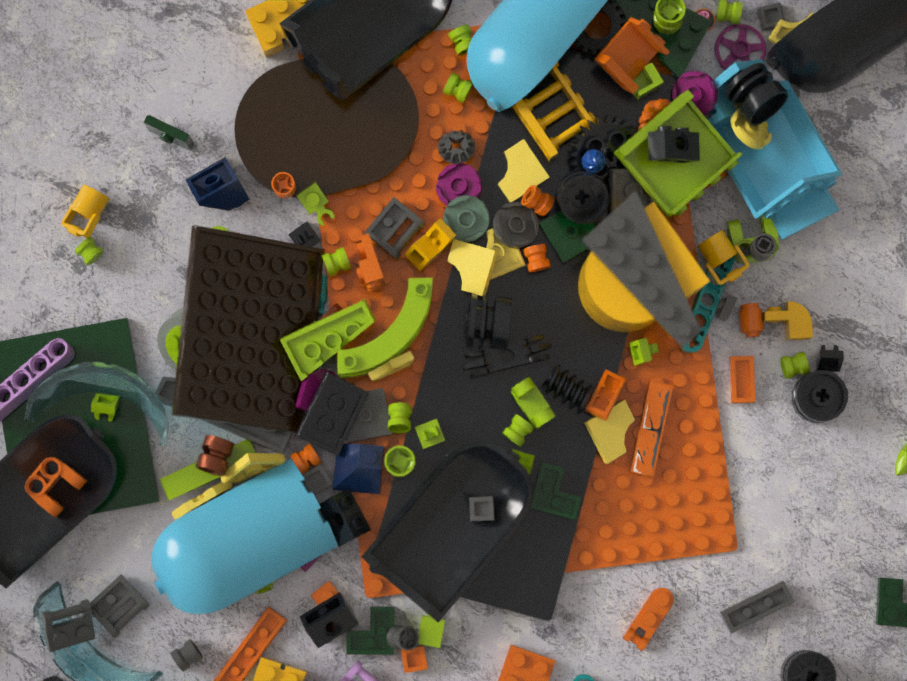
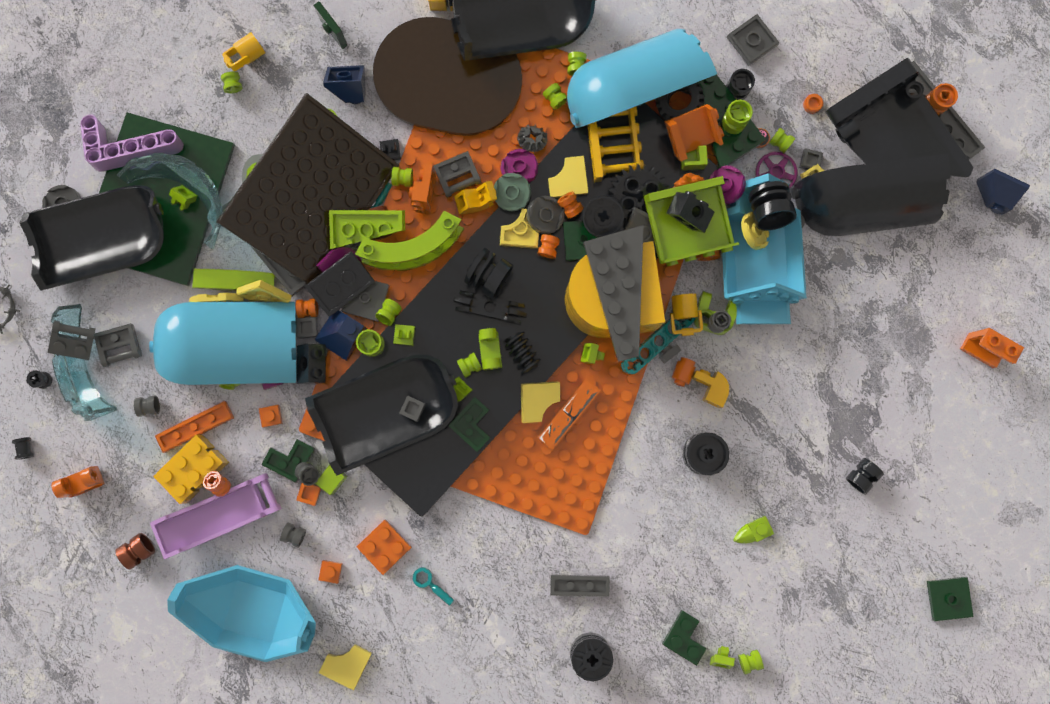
camera: 30 degrees right, 0 degrees up
(49, 481) = (111, 230): orange piece -> none
(215, 455) = (239, 270): copper wheel -> none
(281, 182) = (390, 98): orange wheel -> none
(314, 200) = (409, 124): lime plate -> none
(329, 620) = (260, 433): black brick -> none
(392, 366) = (402, 271): light yellow tile -> none
(474, 265) = (500, 228): light yellow tile -> none
(593, 161) = (625, 194): blue plate -> none
(605, 395) = (547, 371): orange plate -> none
(649, 617) = (497, 551): orange plate -> none
(742, 379) = (655, 412): orange tile -> none
(794, 365) = (699, 421): lime wheel -> none
(830, 359) = (727, 430): black tile -> none

